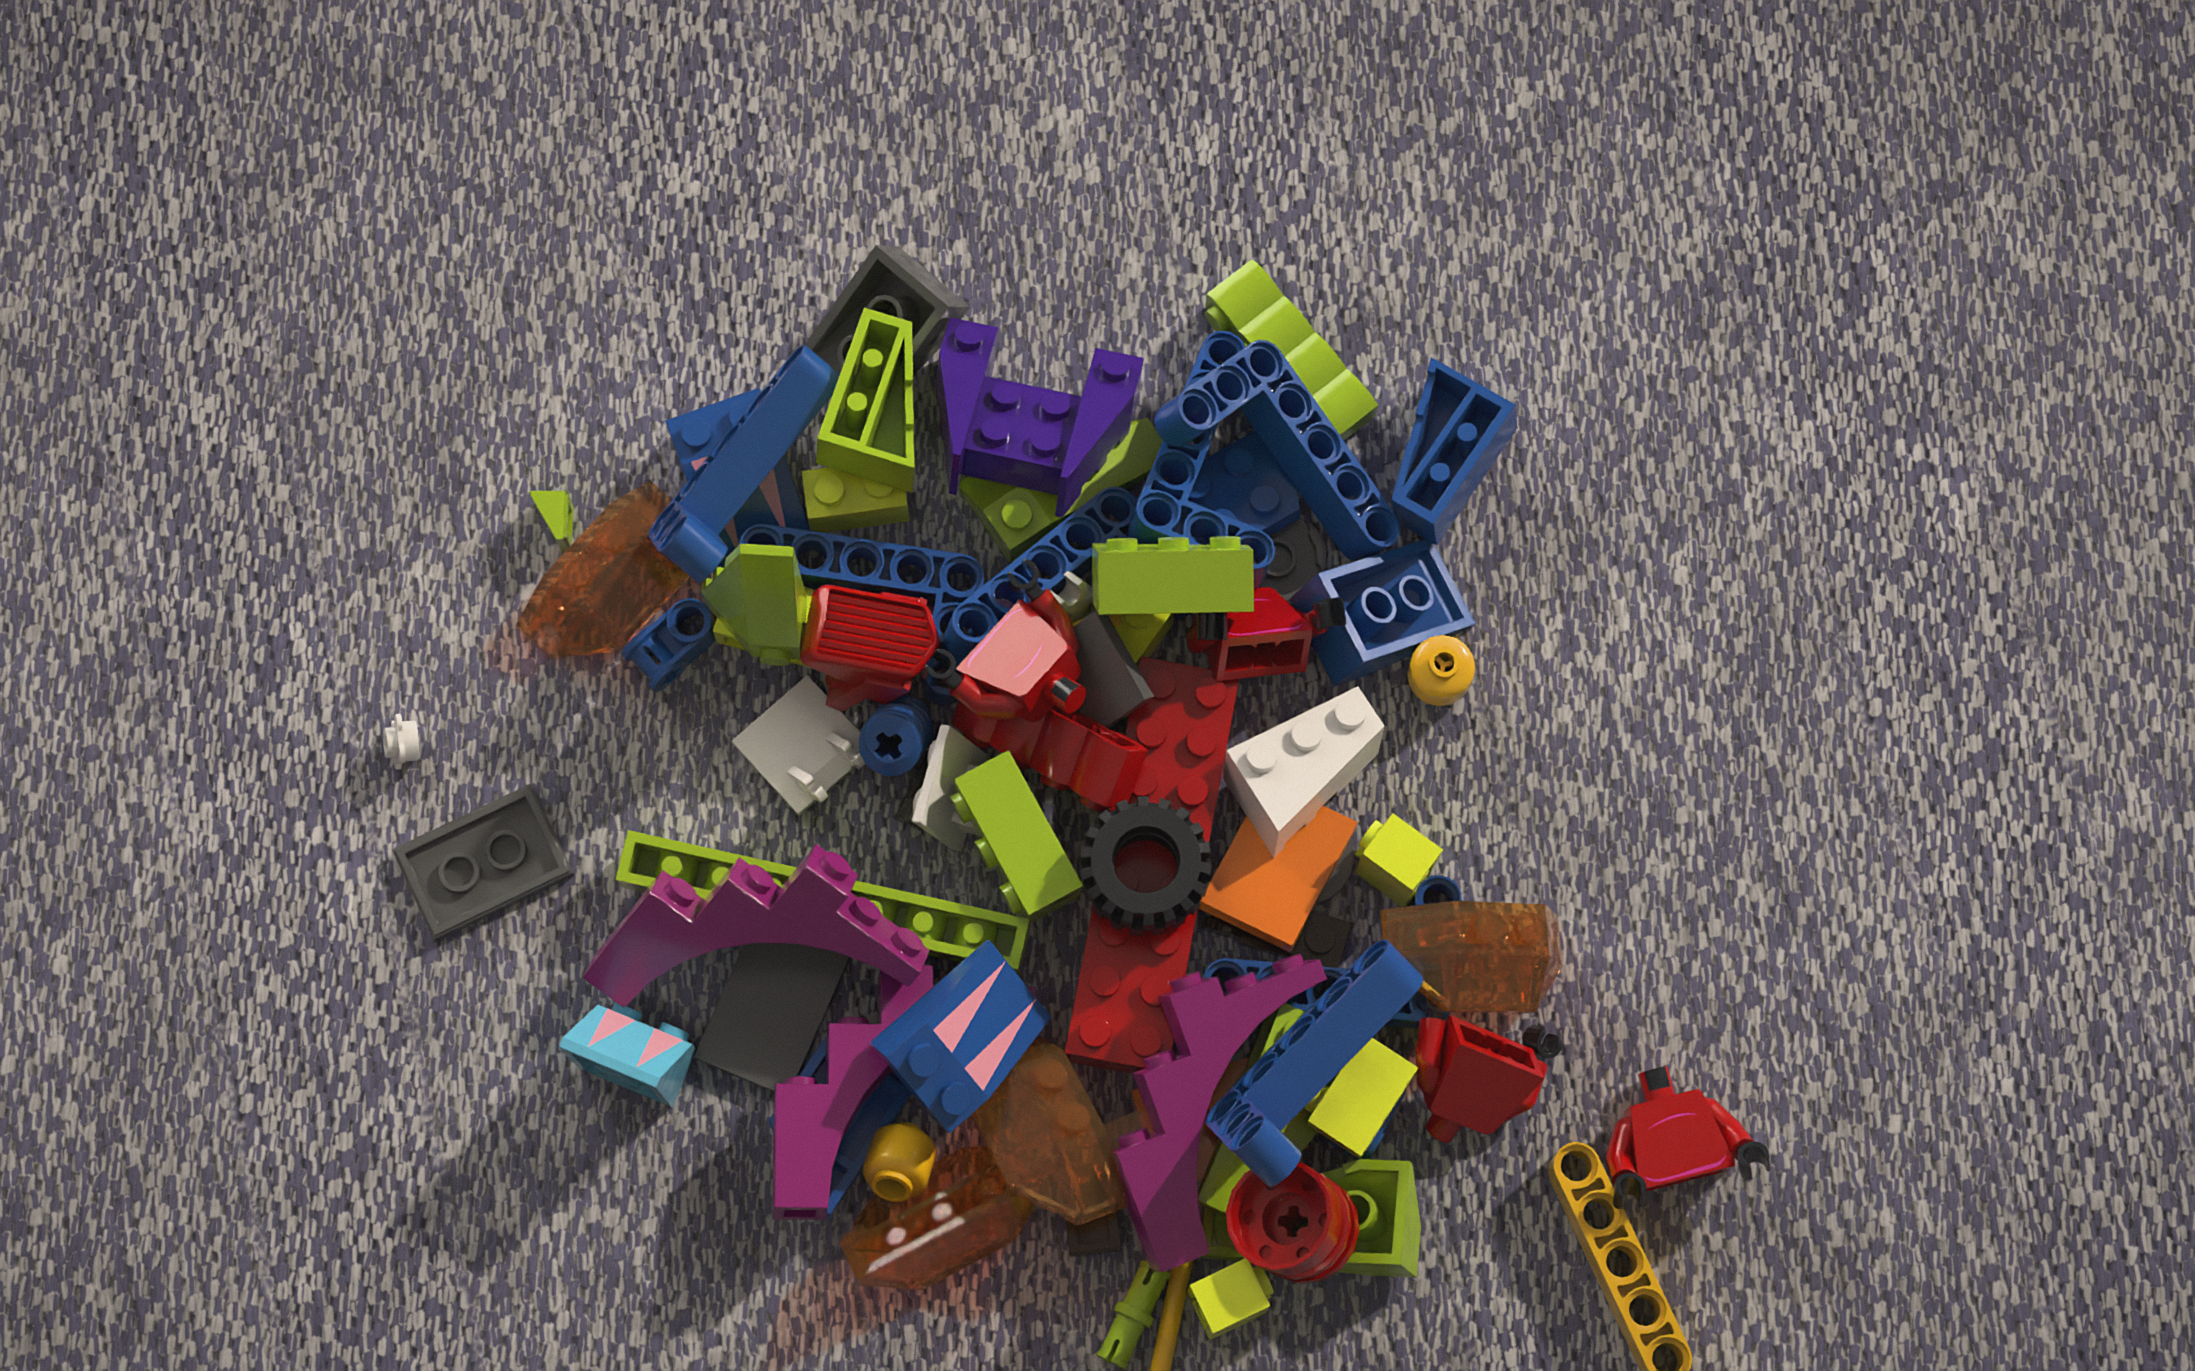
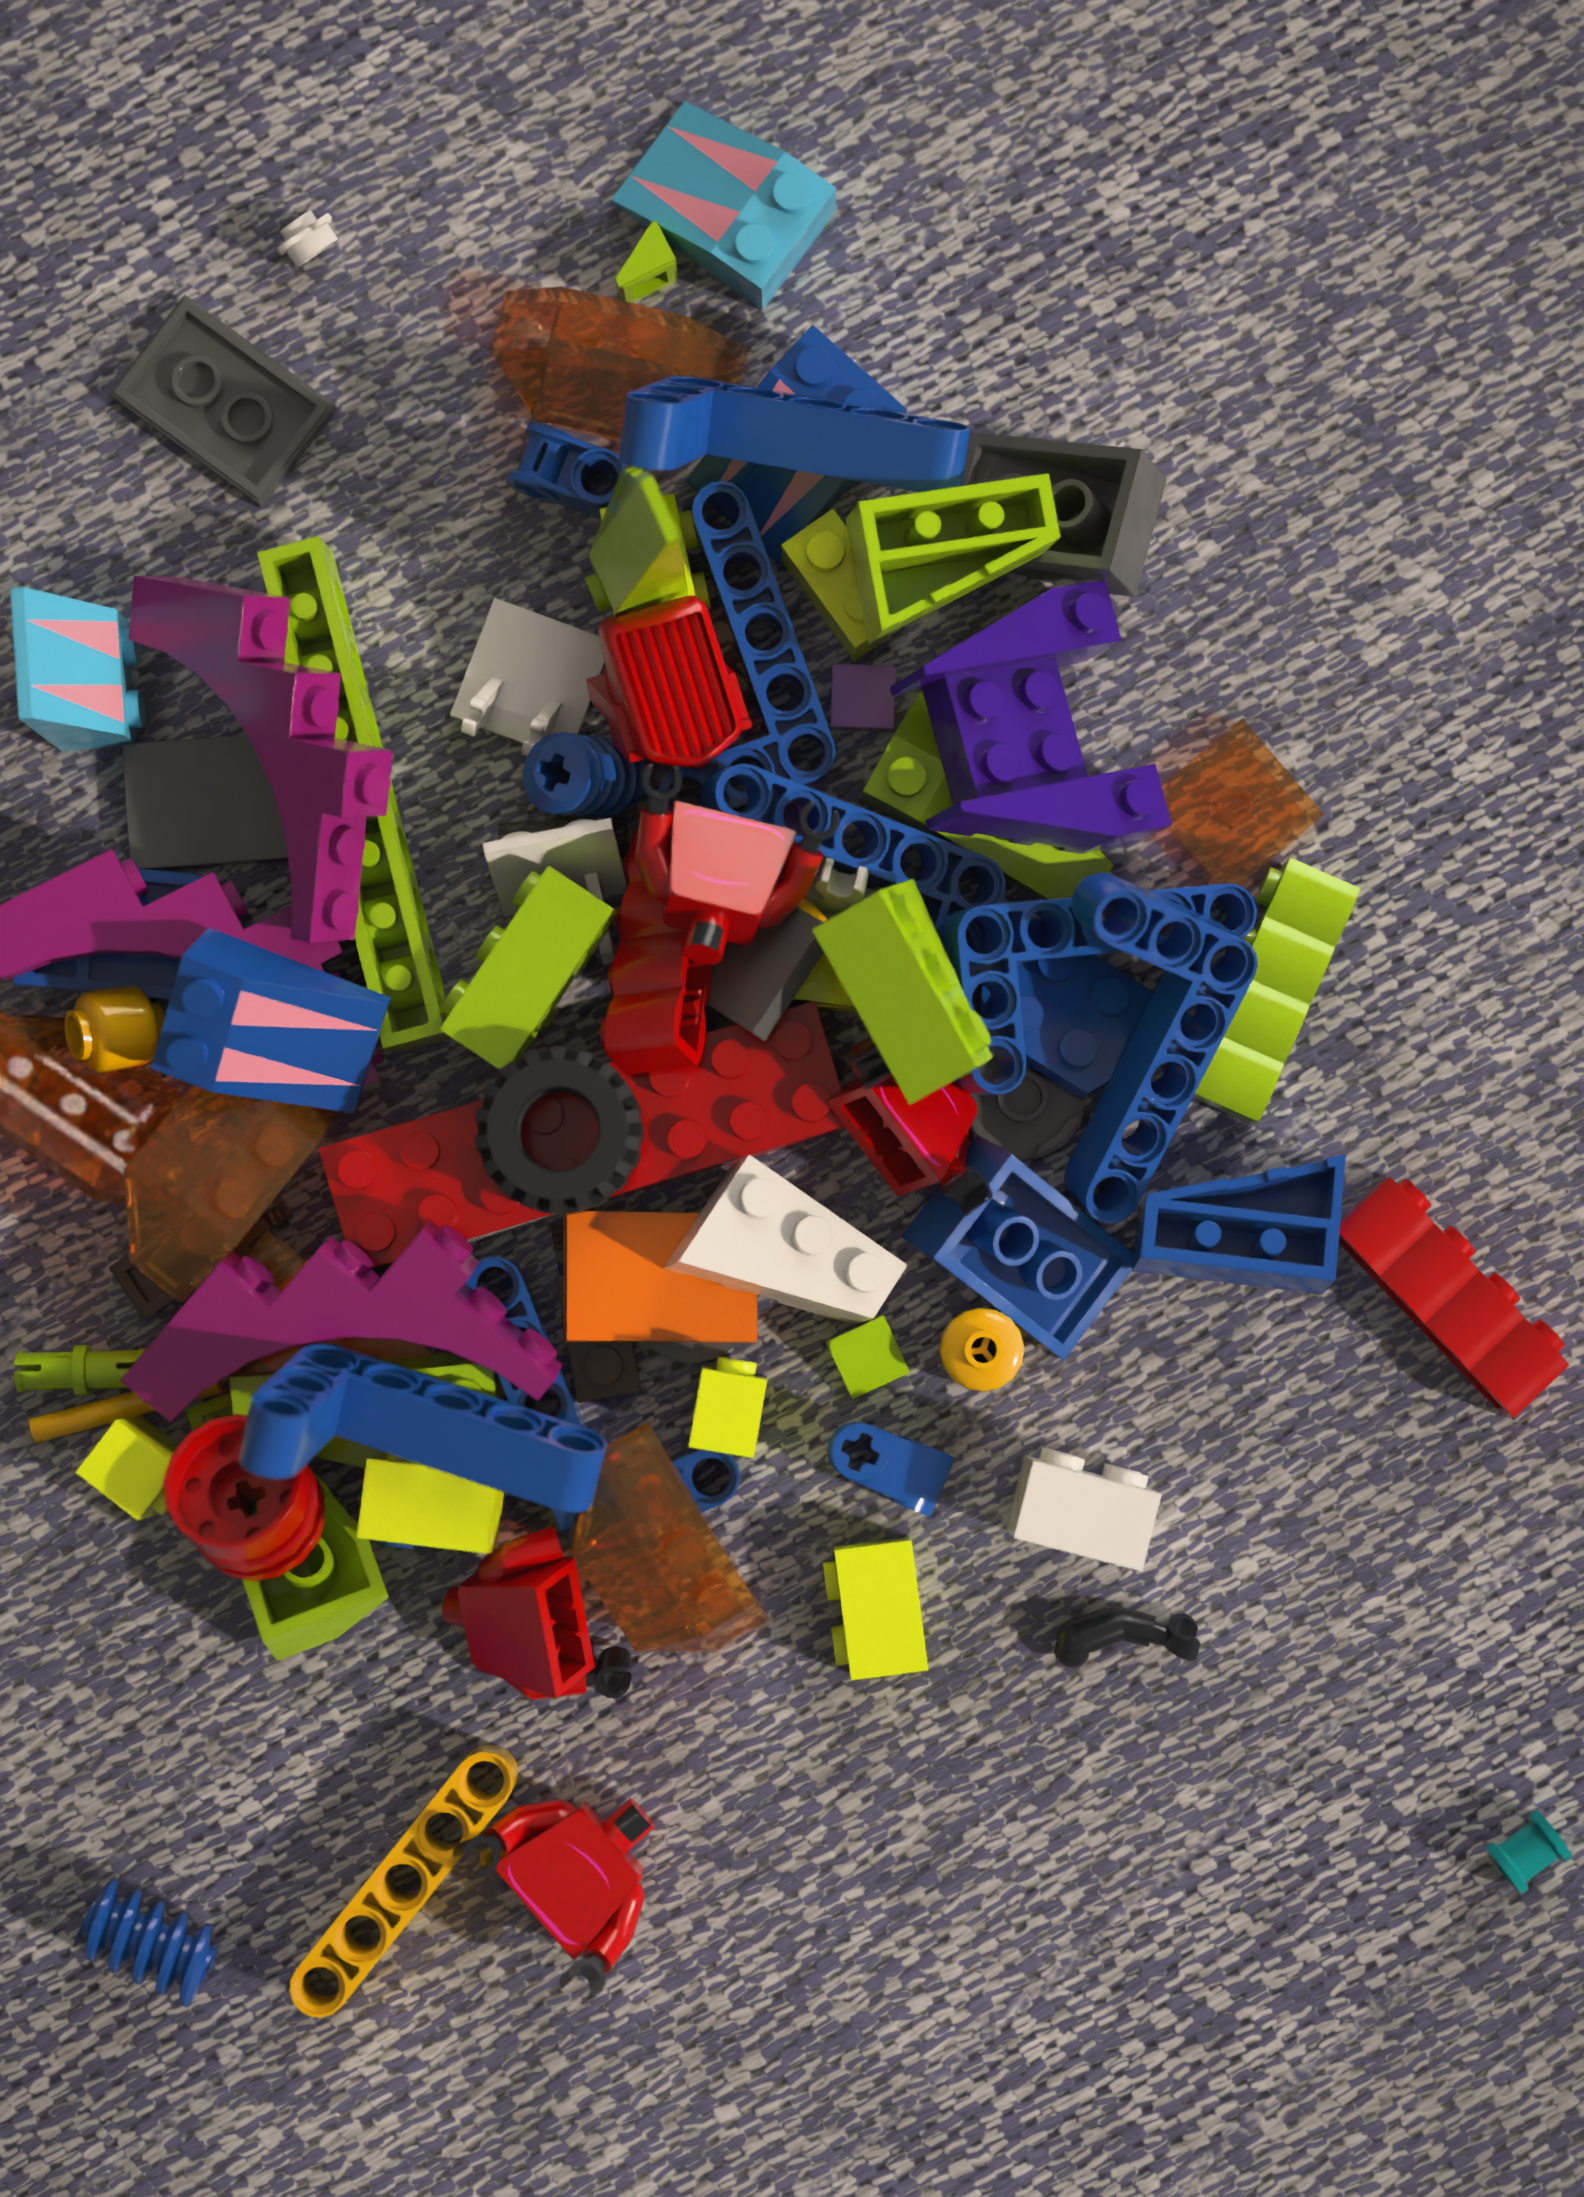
camera: 65 degrees right, 10 degrees up
(539, 440) = (728, 201): none -> medium azure slope
(939, 524) = (862, 697): none -> medium lavender tile
(1151, 314) = (1236, 807): none -> clear orange plate
(1405, 754) = (867, 1357): none -> lime slope
(1495, 770) = (899, 1469): none -> blue piece
(1565, 343) = (1449, 1298): none -> red brick
(1587, 833) = (878, 1608): none -> neon yellow brick
(1590, 654) = (1083, 1511): none -> white brick
(1678, 679) = (1116, 1624): none -> black arm
(1969, 482) = (1528, 1852): none -> teal bush

